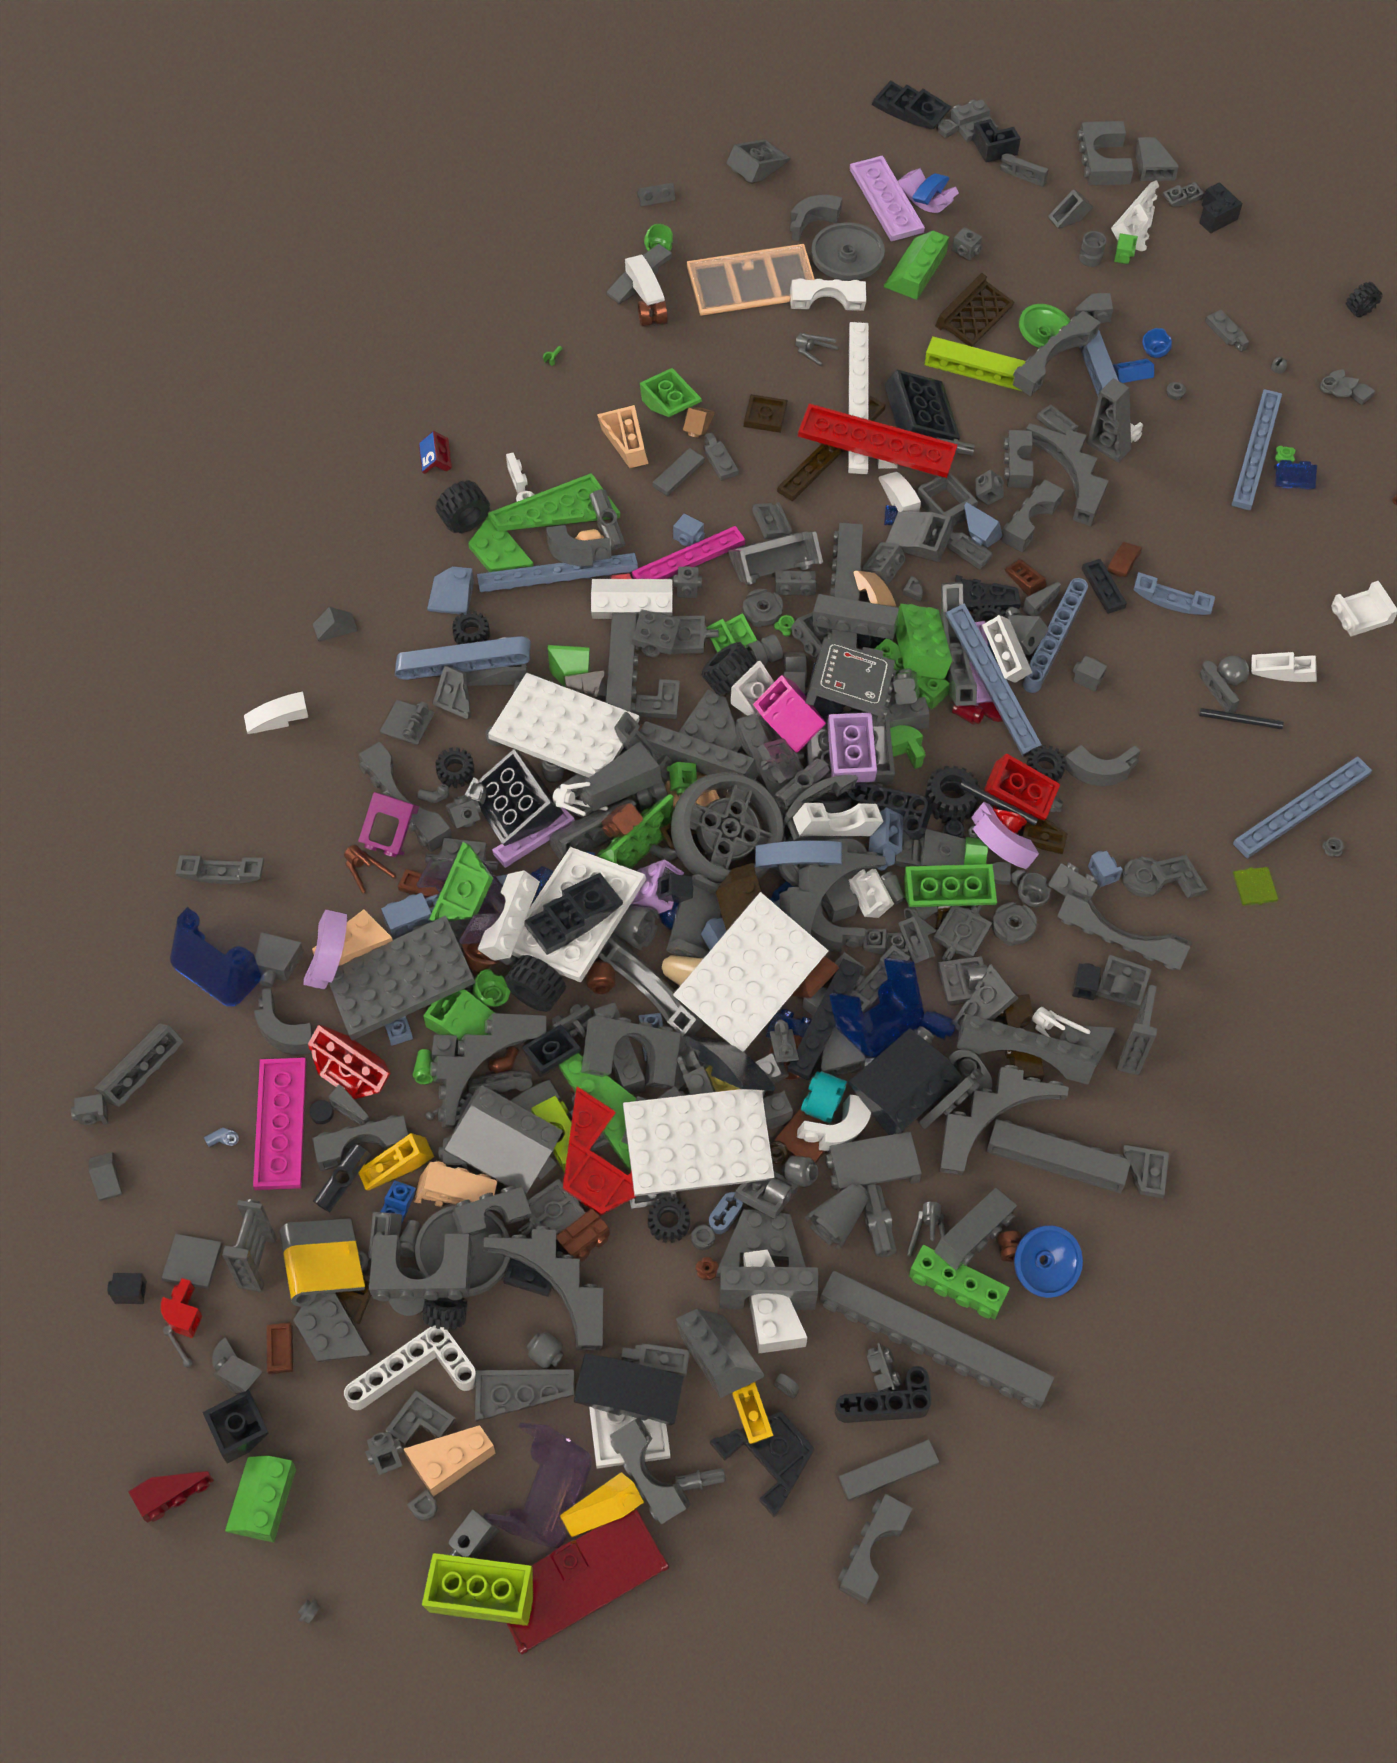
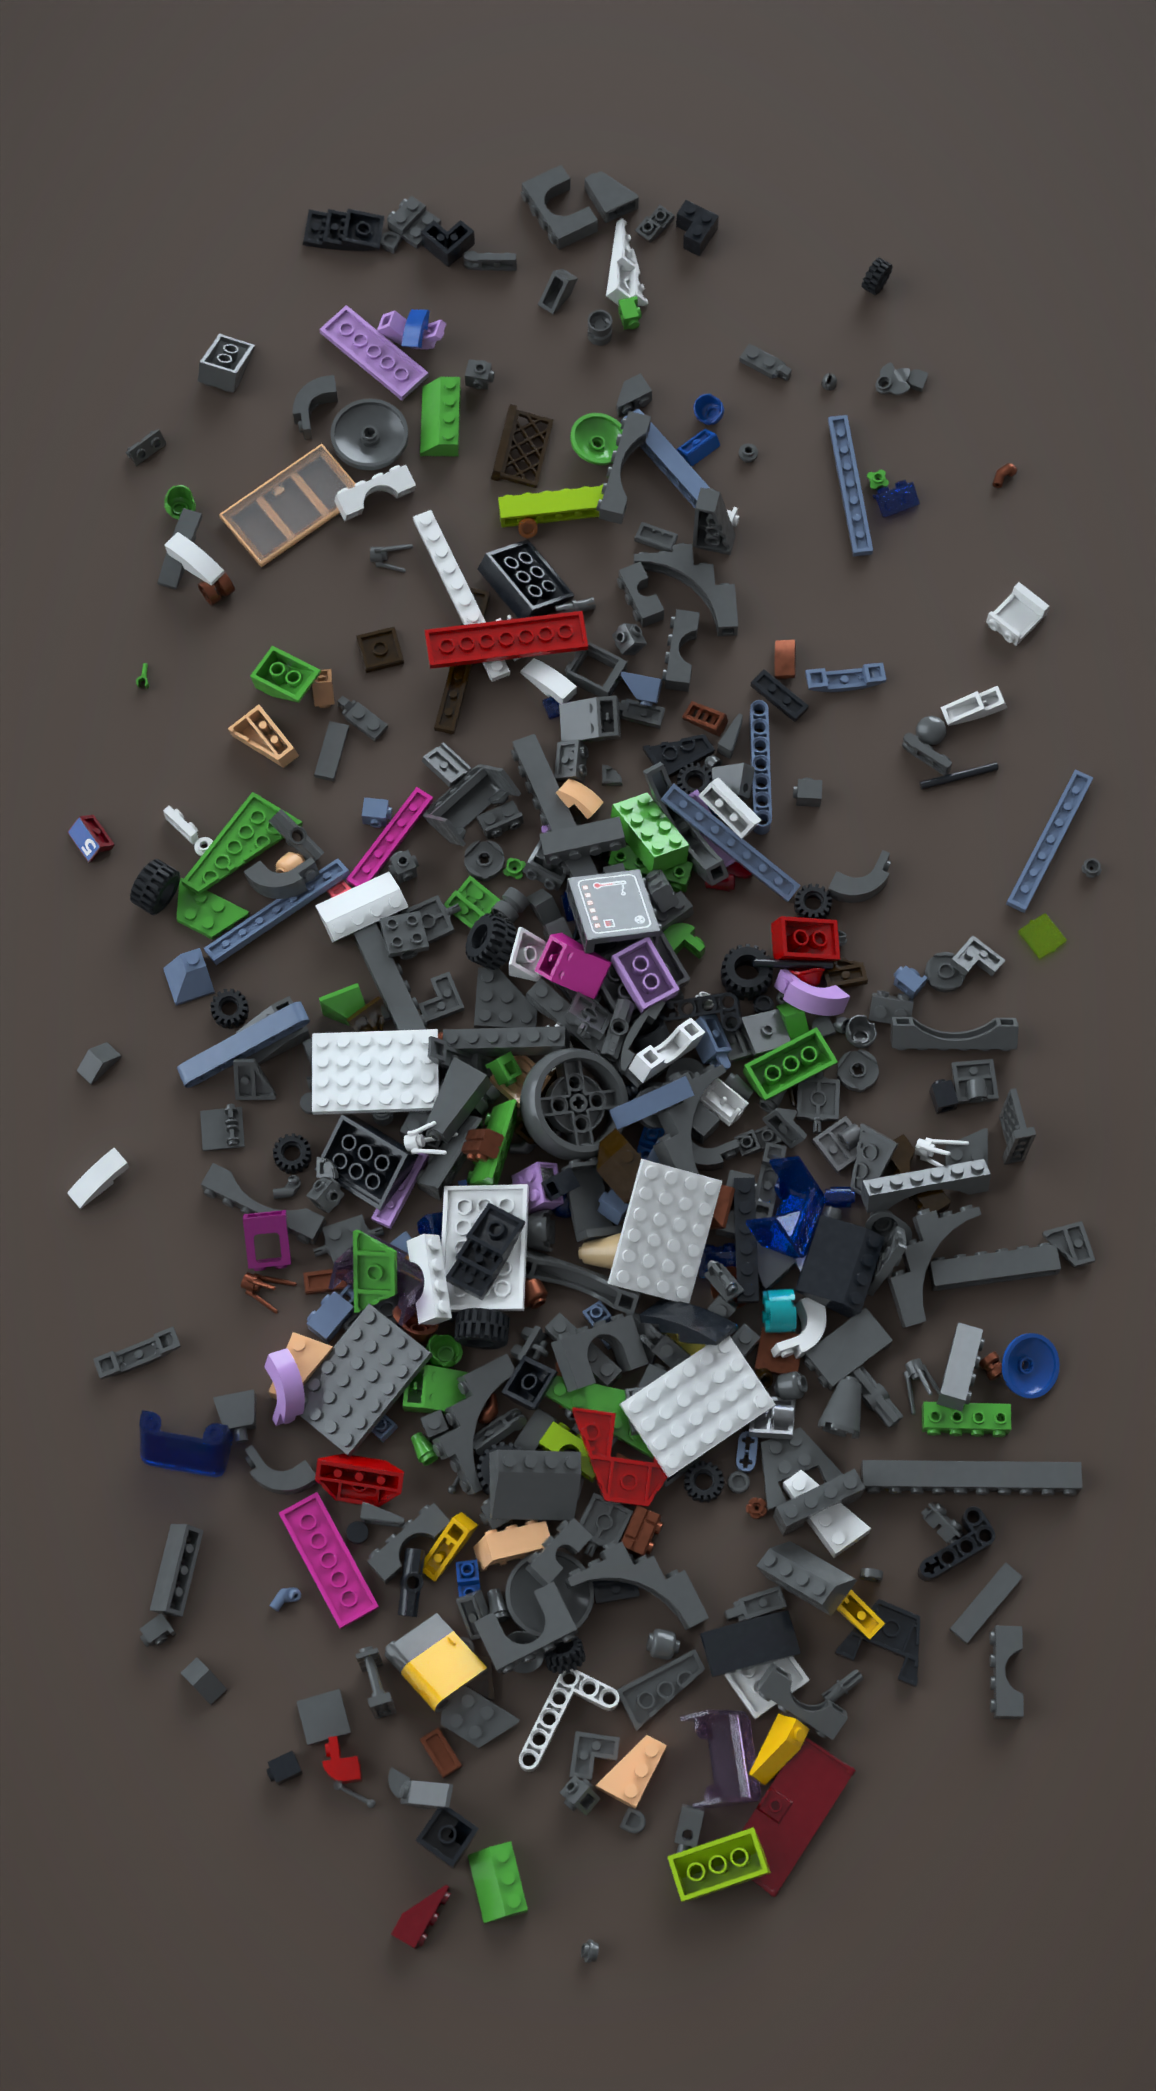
camera: 25 degrees left, 10 degrees up
(946, 371) = (528, 527): none -> dark orange tile

